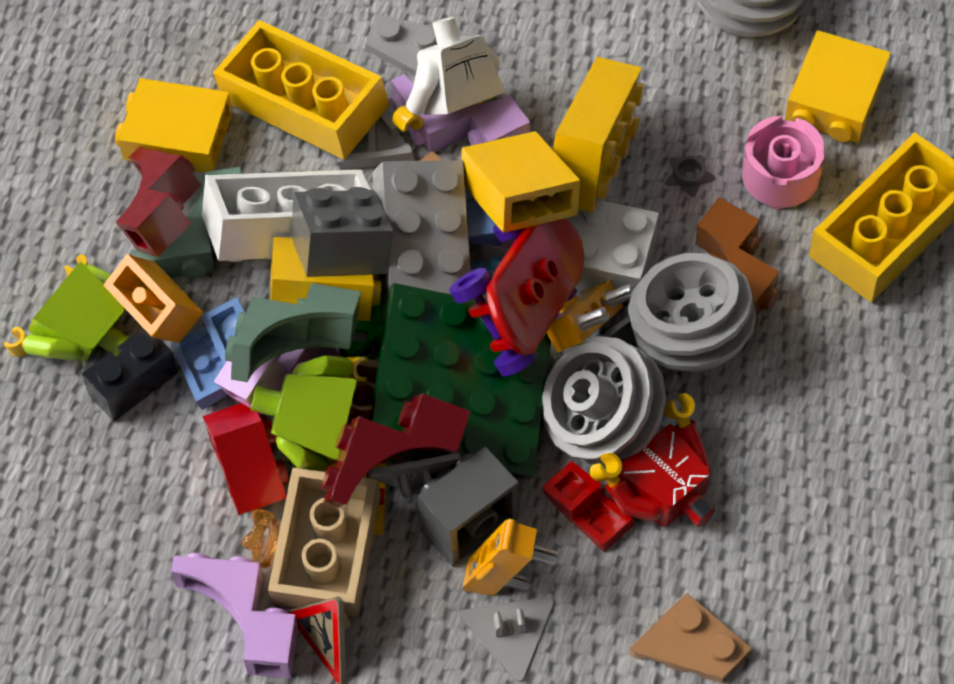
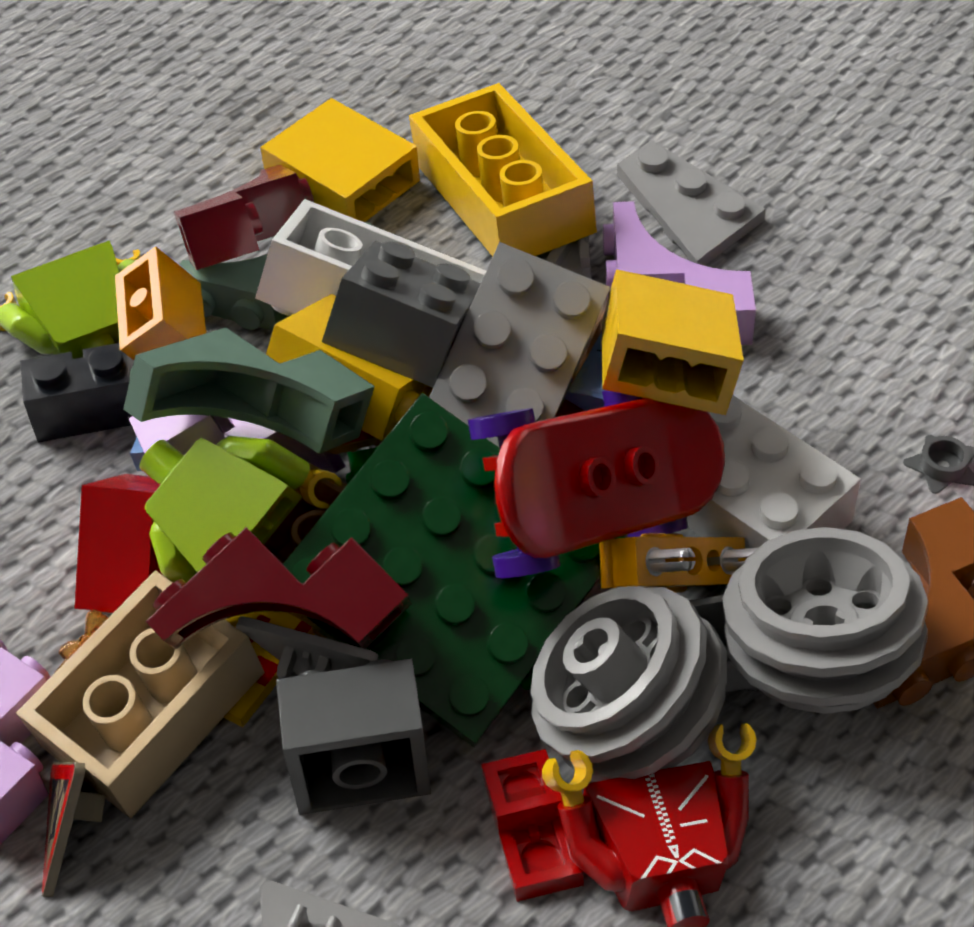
camera: 30 degrees right, 10 degrees down
(450, 76) = (680, 210): white torso -> none
(502, 557) = (340, 825): light orange piece -> none
(600, 127) = (827, 343): yellow brick -> none

